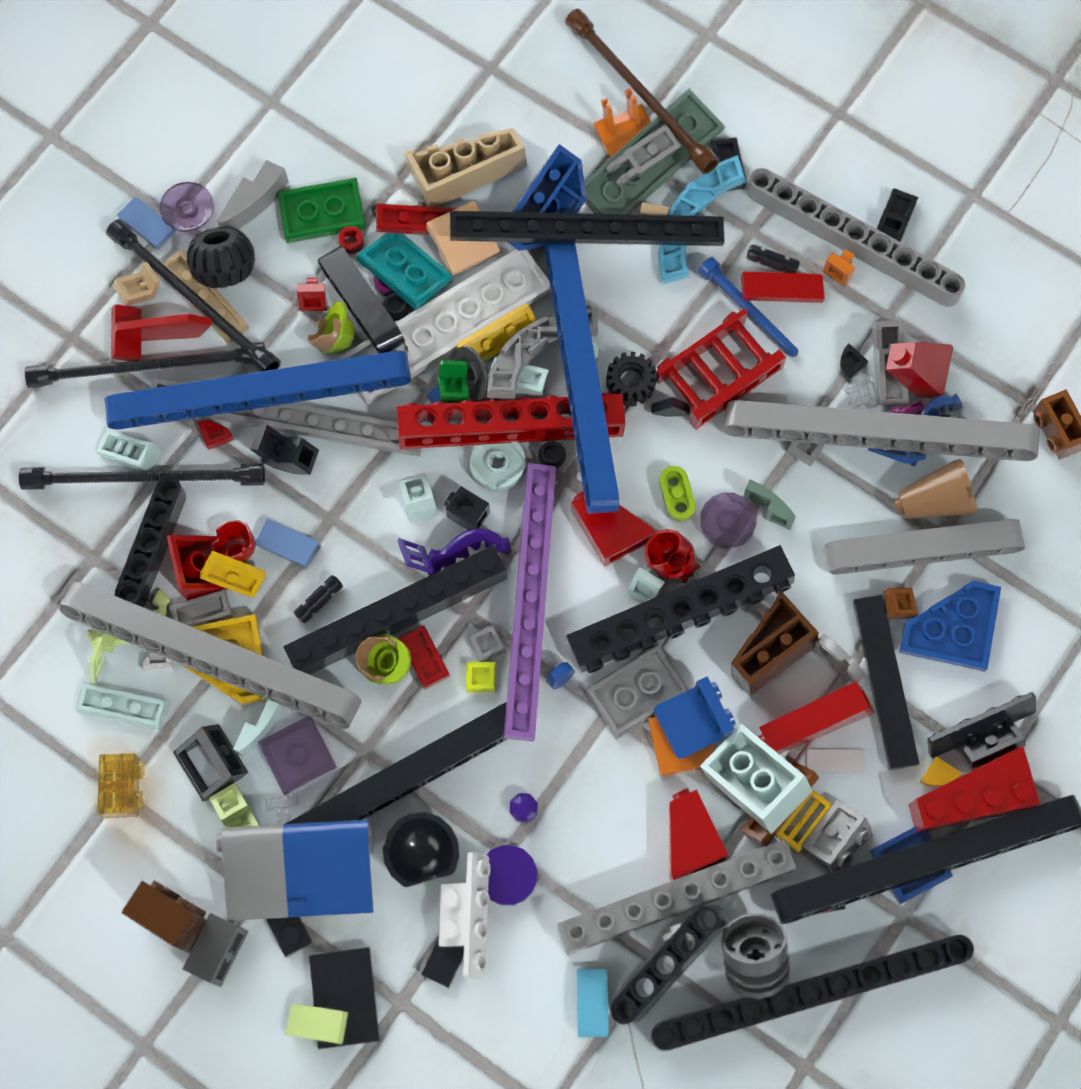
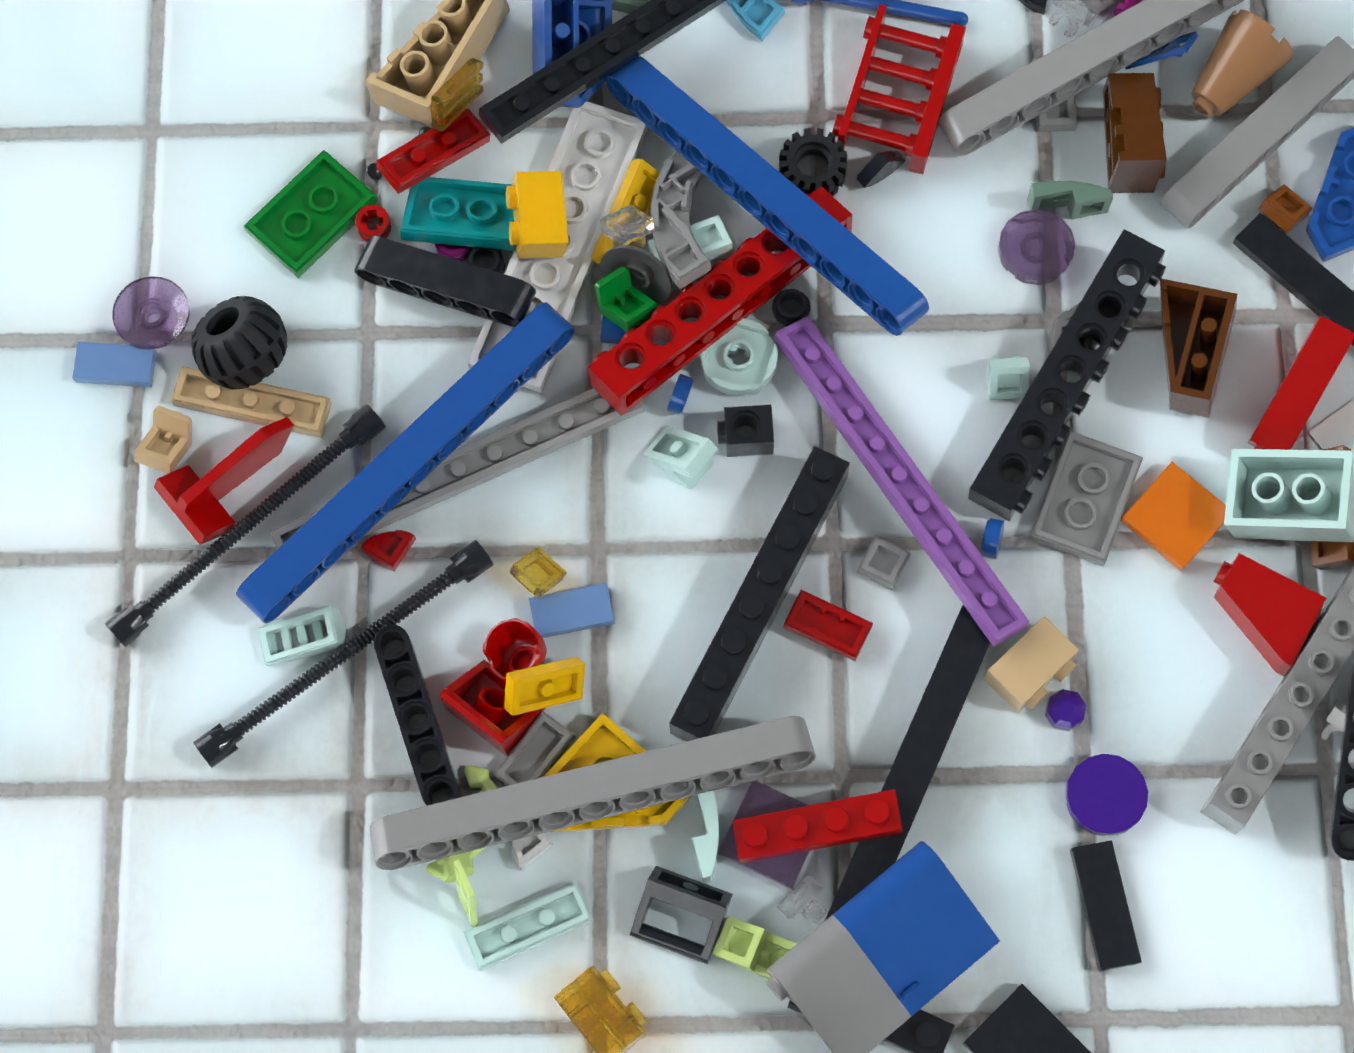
camera: 35 degrees left, 0 degrees up
(122, 235) = (102, 396): black hose -> none
(253, 196) = (222, 247): light grey slope -> none
(283, 507) = (537, 572): none -> clear yellow tile
(284, 453) = (492, 510): black brick -> none
(312, 296) = (381, 314): red tile -> none
(318, 599) = (657, 646): black axle -> none
(321, 768) = (817, 826): none -> red plate
(334, 331) = (438, 335): lime piece -> none
(383, 659) = (792, 657): lime piece -> none
(420, 849) = (1000, 832): black cylinder -> none
(441, 297) = (538, 214): none -> yellow brick
(445, 460) = (680, 394): none -> blue tile
(452, 195) = (456, 94): none -> clear yellow tile
(454, 549) = (771, 481): dark purple piece -> none
(459, 254) = (503, 159): light nougat slope -> none
(465, 915) = (1100, 869): white bracket -> none
(481, 677) = (906, 603): neon yellow tile -> none
(486, 339) = (627, 226): none -> clear tile
(522, 767) = (1032, 665): none -> tan brick
(592, 1003) = (1306, 862): medium azure slope -> none
(611, 533) = (922, 351): red slope -> none
(671, 555) = (1011, 323): red helmet -> none
(678, 494) = (963, 255): lime plate -> none
(695, 719) = (1177, 478): blue bracket -> none
(839, 658) = (1276, 308): light grey tile -> none
(841, 491) = (1133, 133): none -> reddish brown wedge

